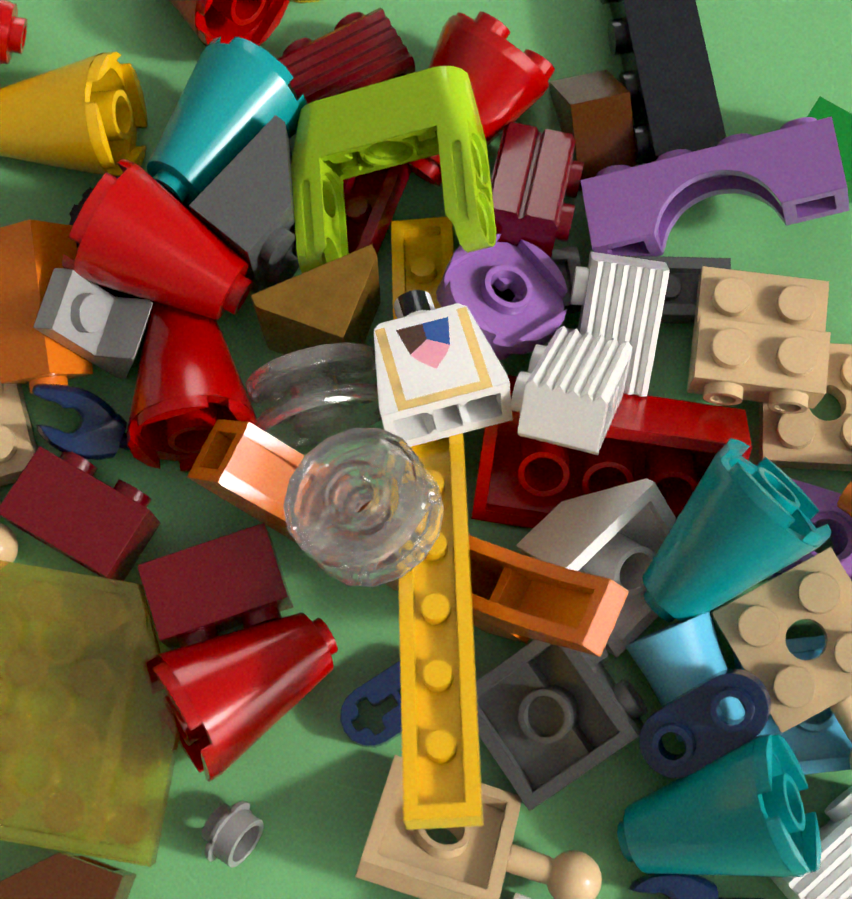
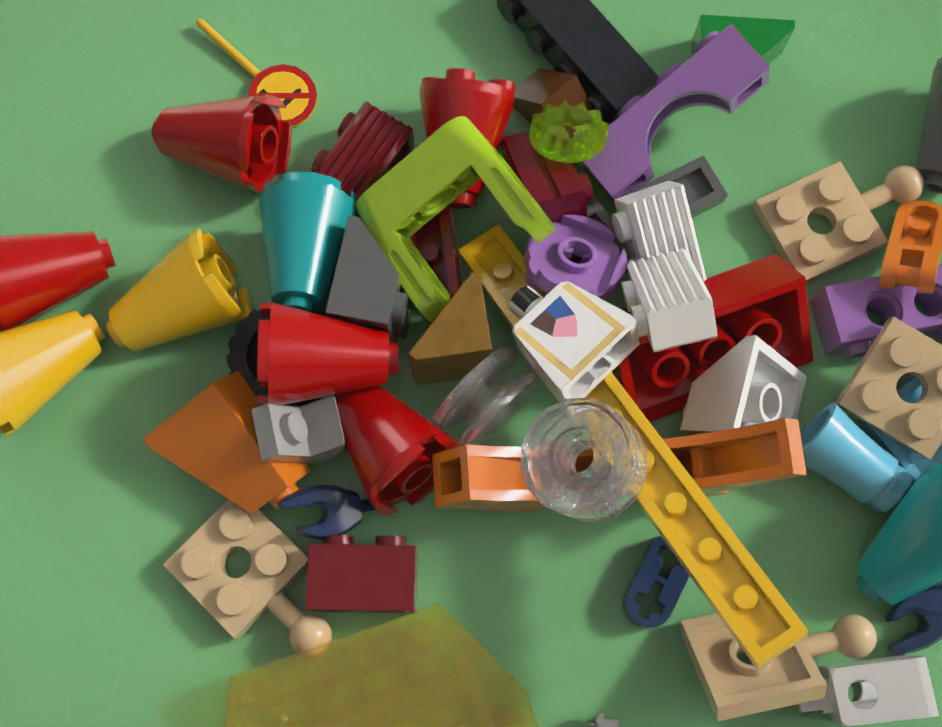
camera: 30 degrees left, 0 degrees up
(215, 587) = (491, 574): dark red brick -> none
(240, 685) = (552, 634): red cone -> none
(554, 717) = (783, 529): dark grey plate -> none
(596, 167) = (553, 141): none -> clear neon green gear
(703, 725) = (877, 480): dark blue plate -> none
(730, 536) = (827, 346): teal cone -> none
(760, 340) = (759, 201): tan plate -> none

